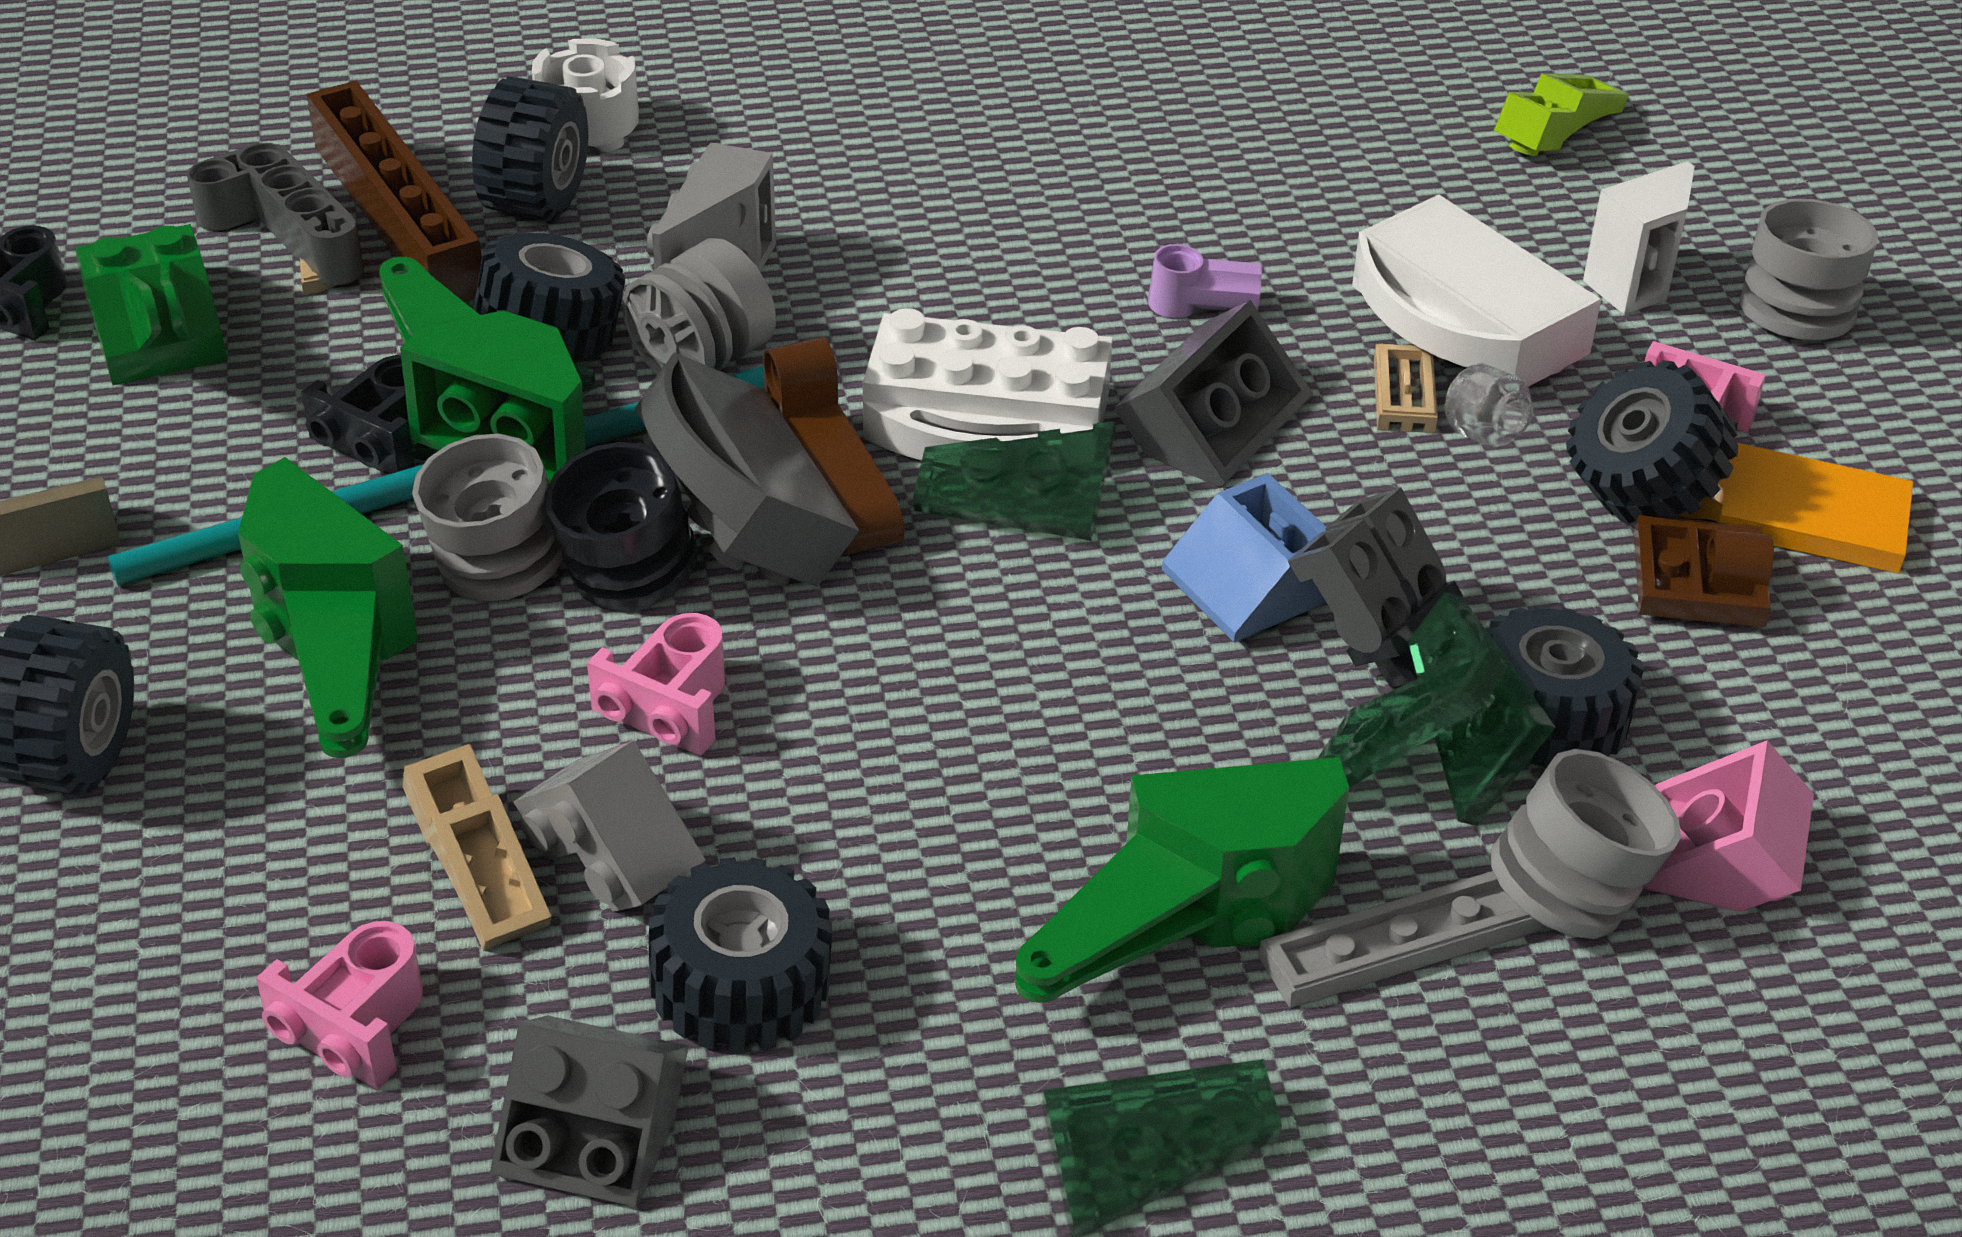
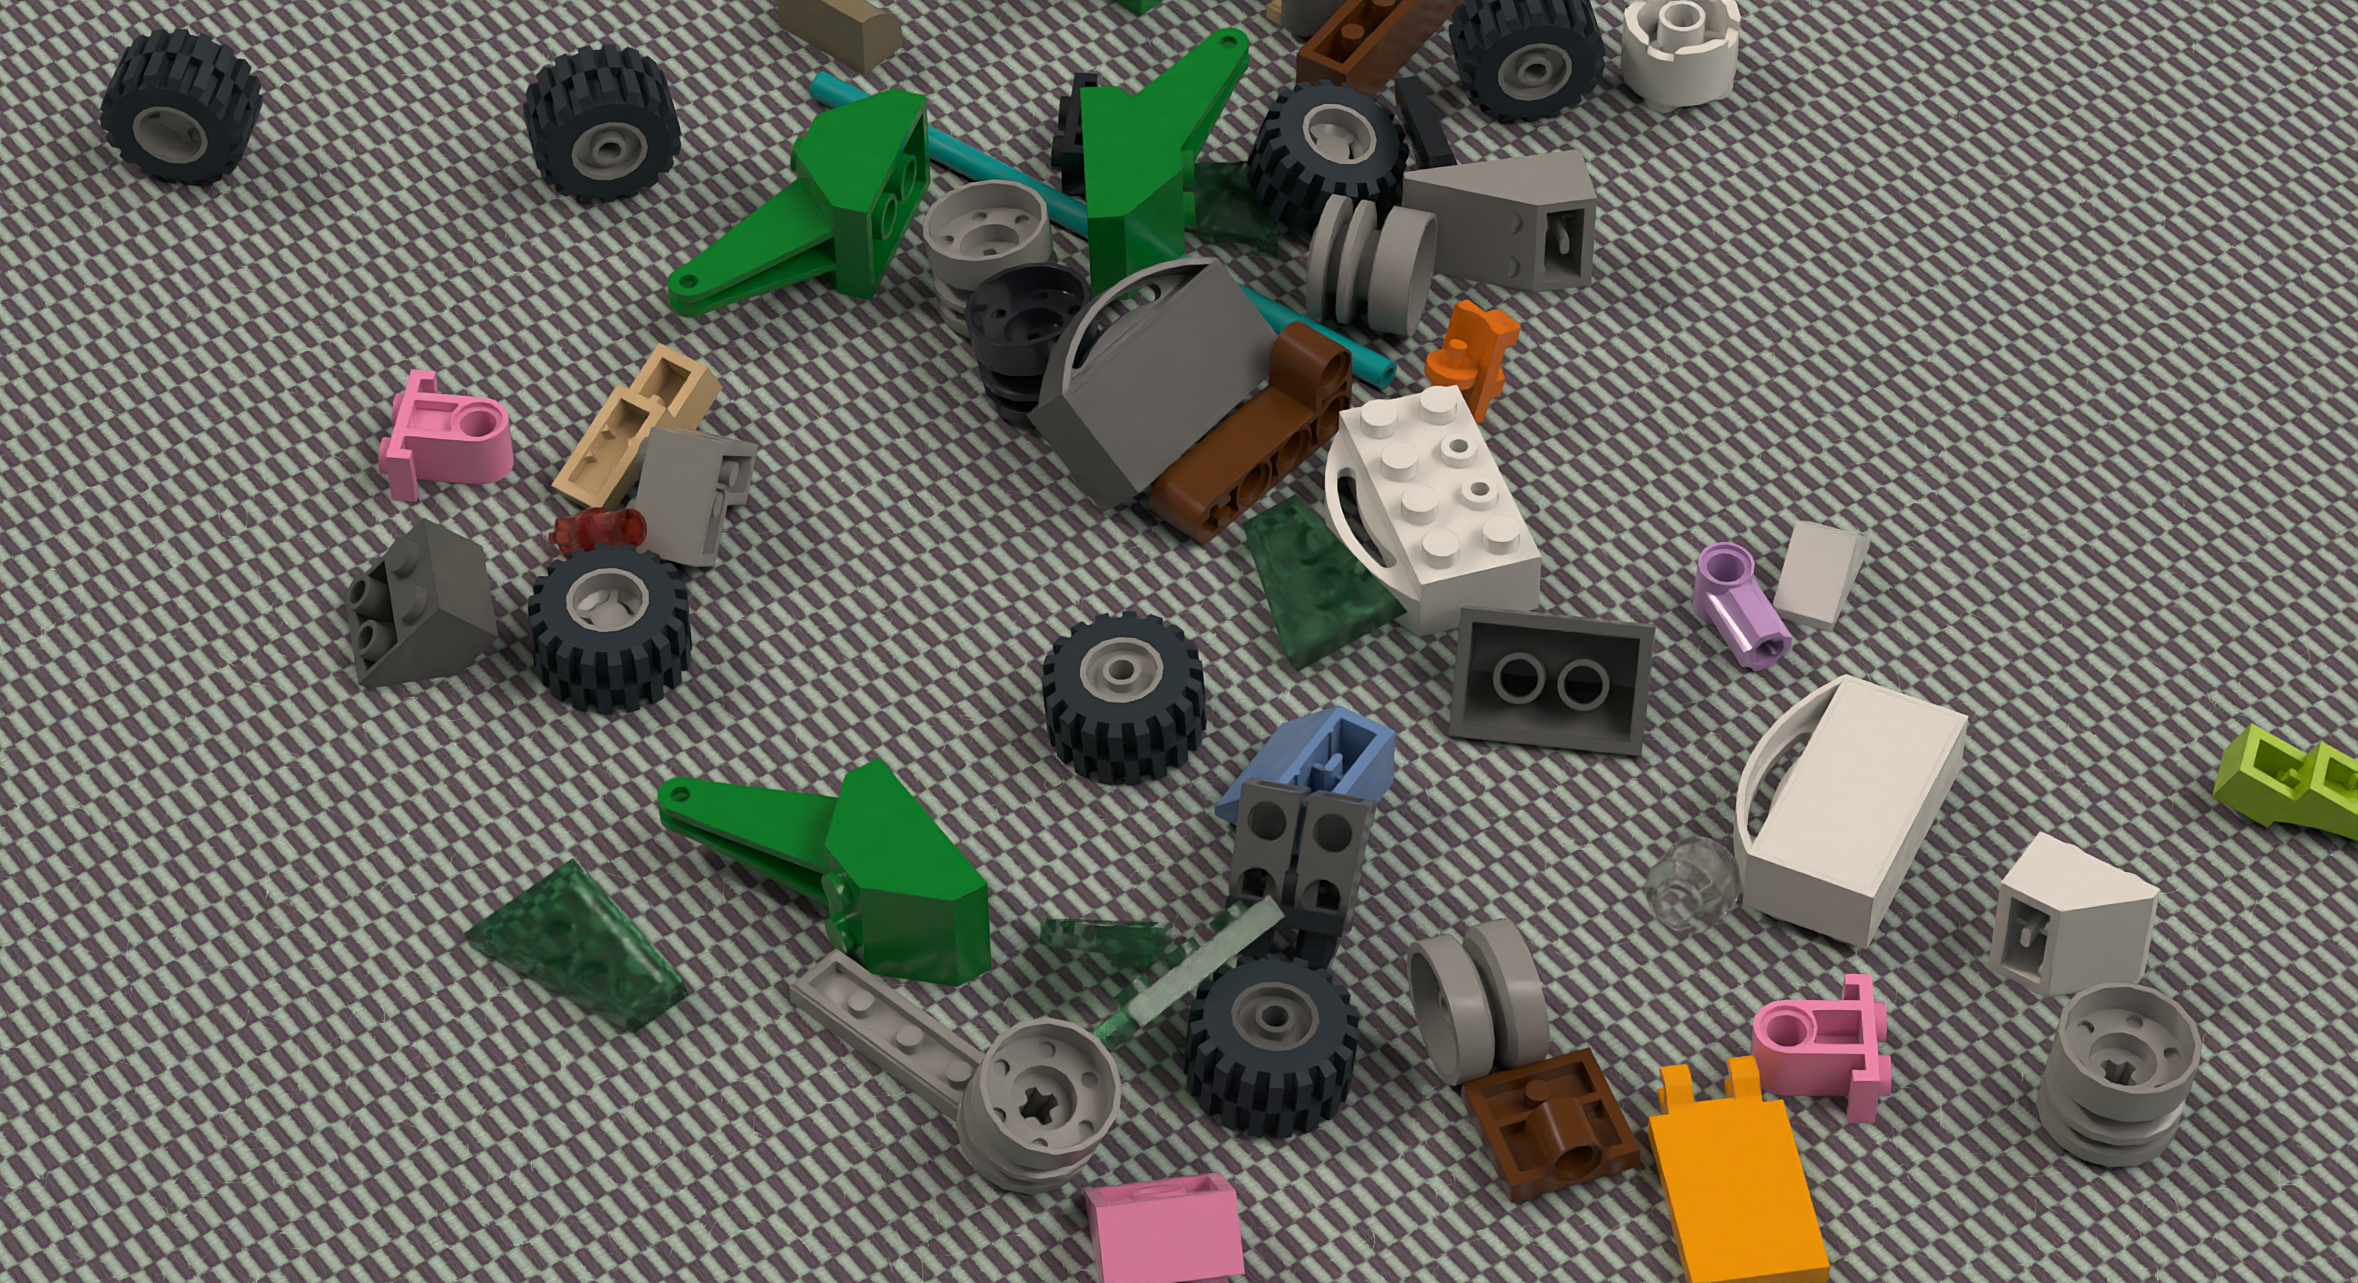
camera: 65 degrees right, 5 degrees up
(604, 915) = (597, 527): none -> clear red axle
(605, 222) = (1421, 125): none -> black slope
(666, 683) = (898, 464): bright pink pin -> none
(849, 303) = (1473, 355): none -> orange hips
(1085, 633) = (1124, 697): none -> black wheel
(1188, 223) = (1818, 574): none -> white slope
(1404, 412) = (1703, 821): tan tile -> none
(1586, 540) = (1478, 1001): none -> light grey wheel
(1652, 442) = (1667, 1009): black wheel -> none

